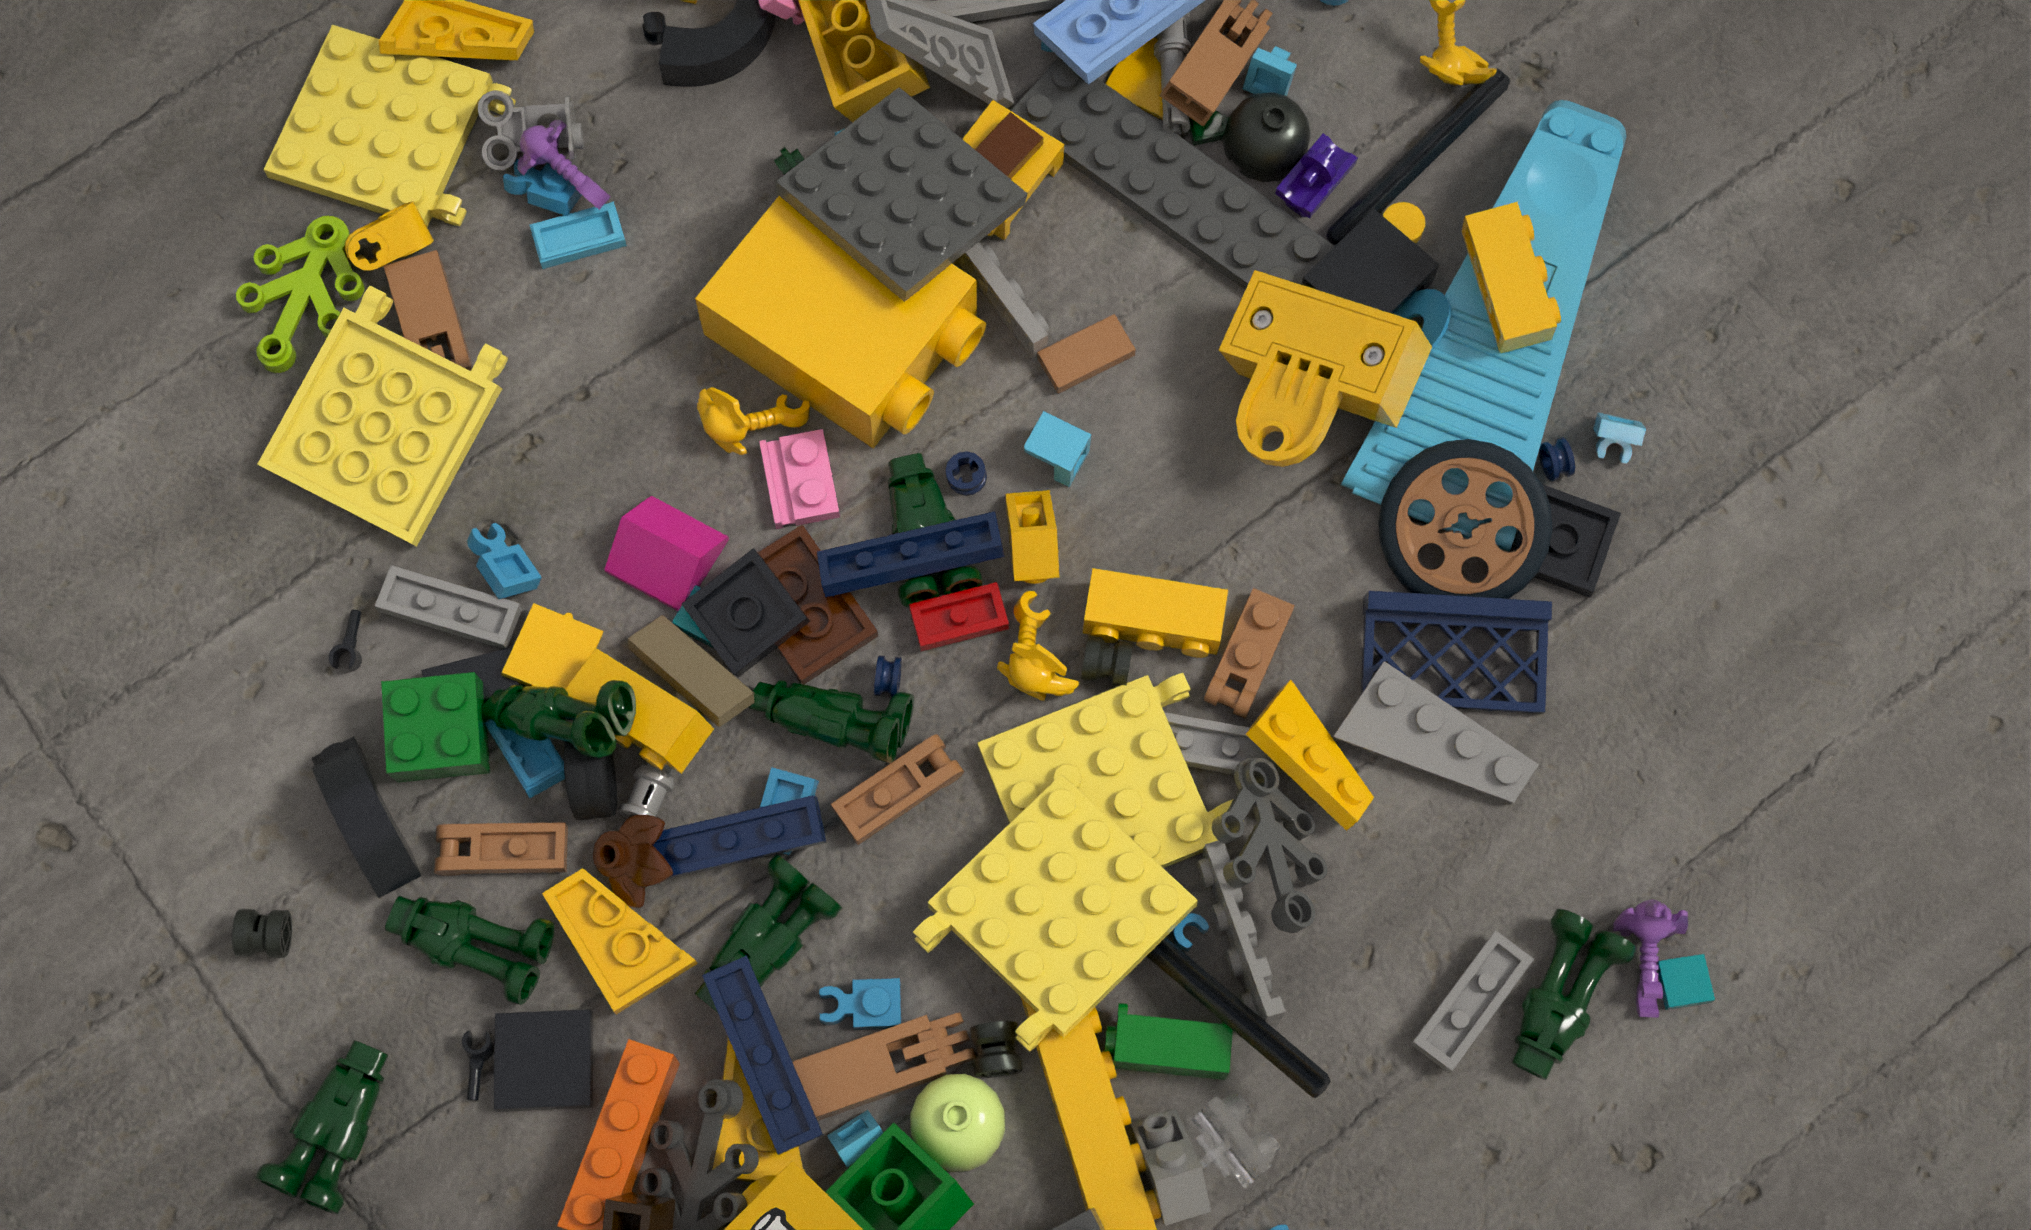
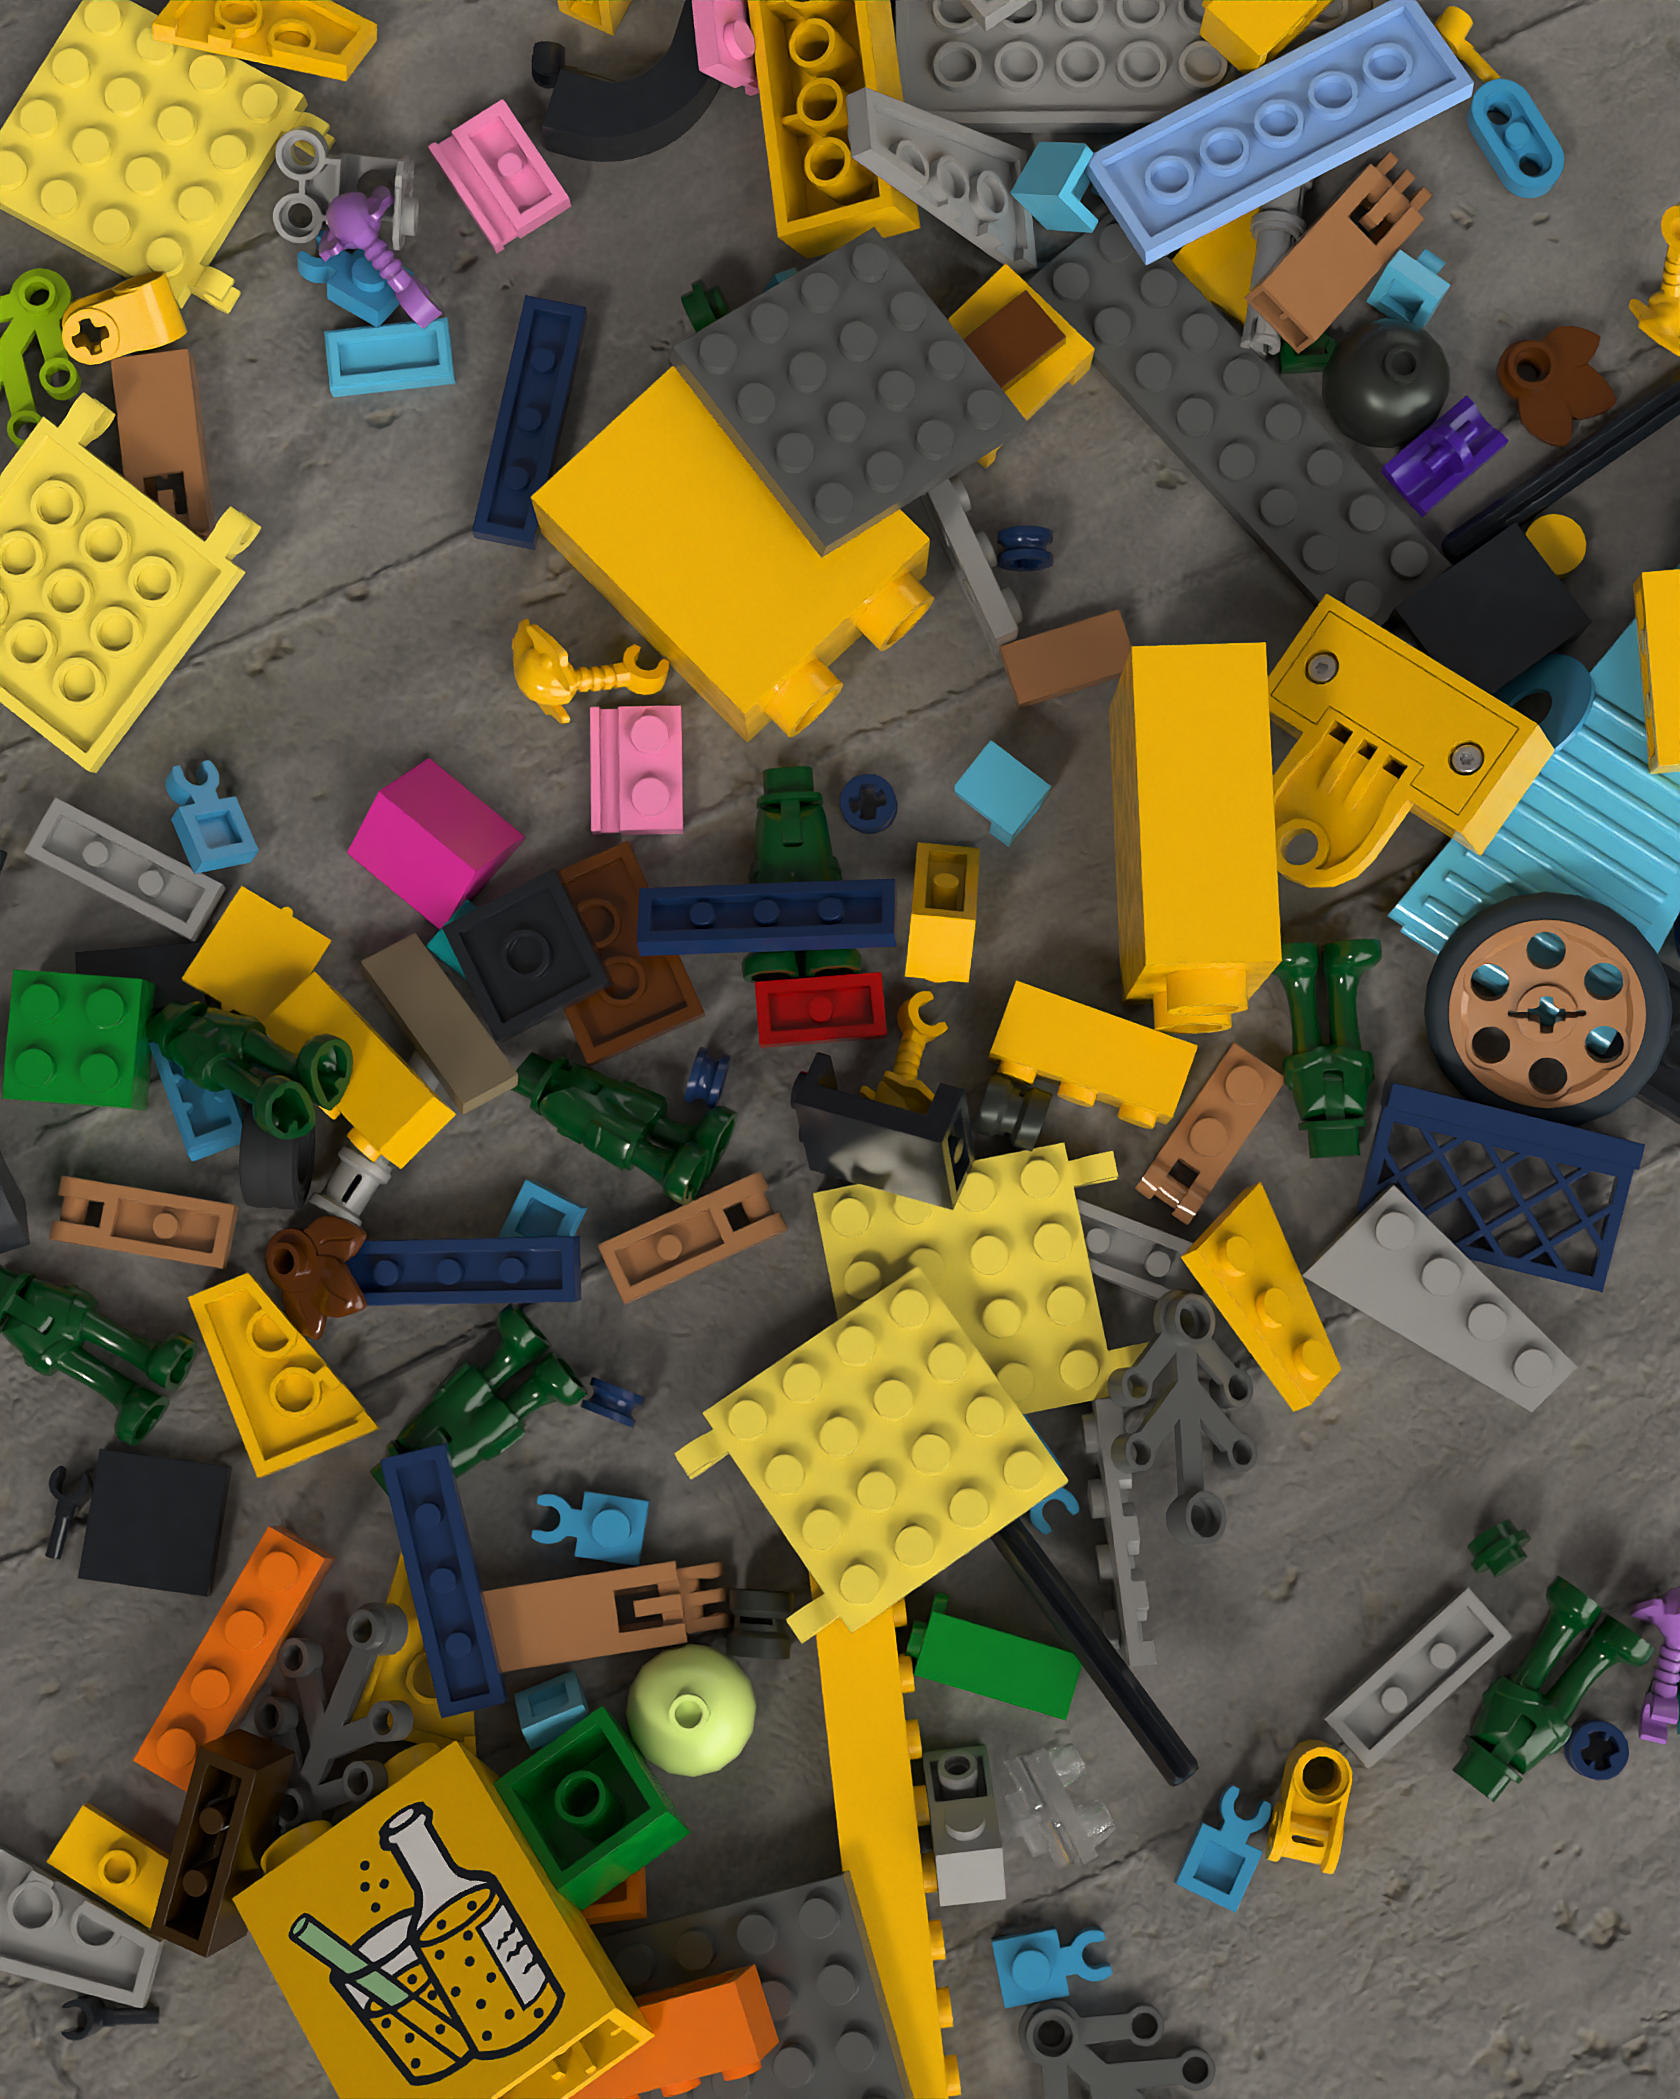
camera: 10 degrees right, 10 degrees up
(634, 104) = (500, 176): none -> bright pink plate
(683, 259) = (529, 420): none -> dark blue plate
(861, 912) = (612, 1402): none -> dark blue bush
(1016, 47) = (1054, 185): none -> medium azure panel
(1021, 690) = (884, 1143): none -> black panel
(1042, 285) = (1025, 548): none -> dark blue bush
(1196, 440) = (1194, 832): none -> yellow brick
(1324, 600) = (1333, 1078): none -> dark green piece
(1359, 1156) = (1220, 1860): none -> dark azure plate
(1387, 119) = (1564, 383): none -> reddish brown plate
(1416, 1109) = (1309, 1811): none -> yellow piece
(1511, 900) = (1499, 1548): none -> dark green plate
(1597, 1023) = (1613, 1760): none -> dark blue bush

